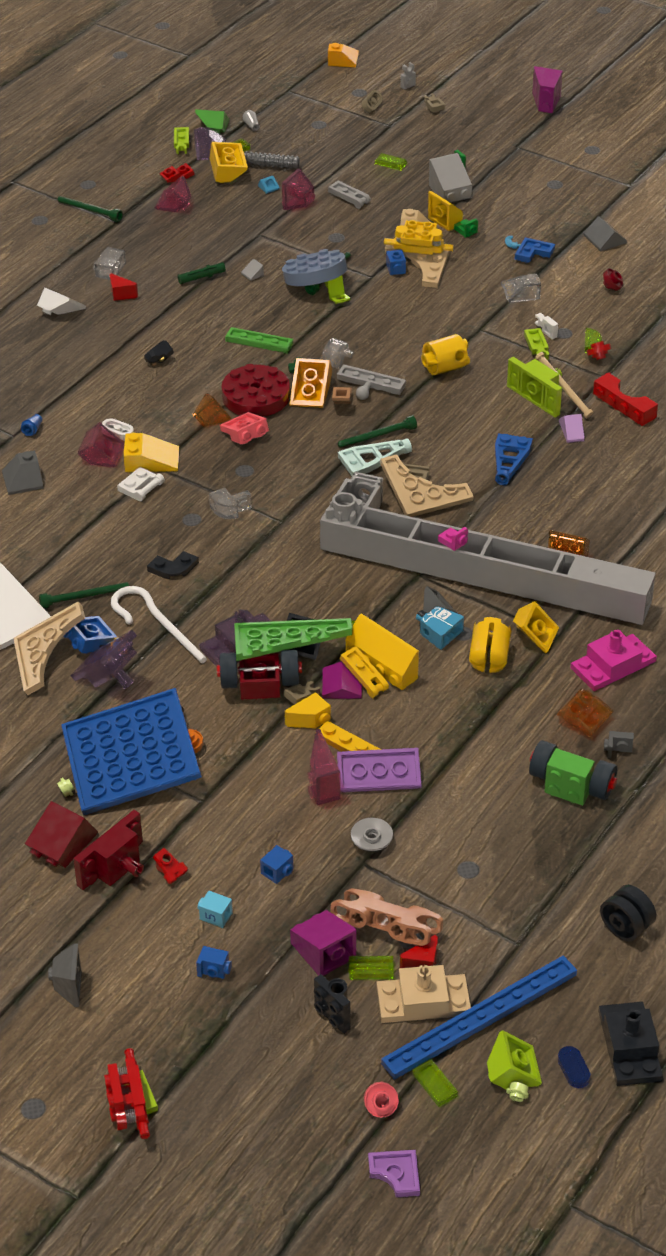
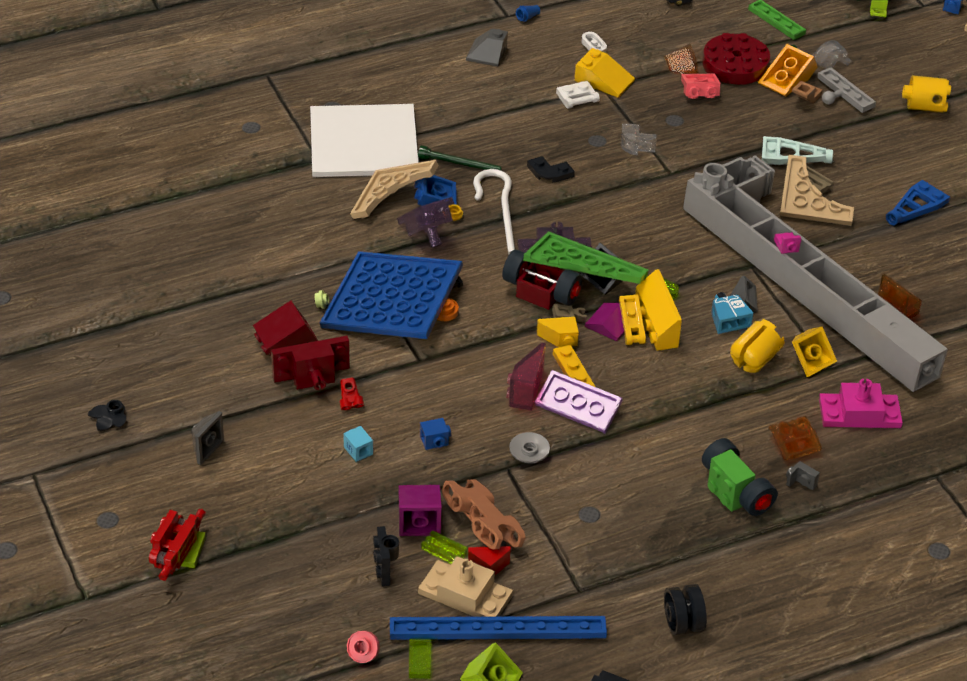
camera: 30 degrees right, 0 degrees up
(101, 447) = (566, 51): clear pink slope -> none
(213, 962) = (322, 481): blue brick -> none
(408, 423) = (847, 138): dark green piece -> none

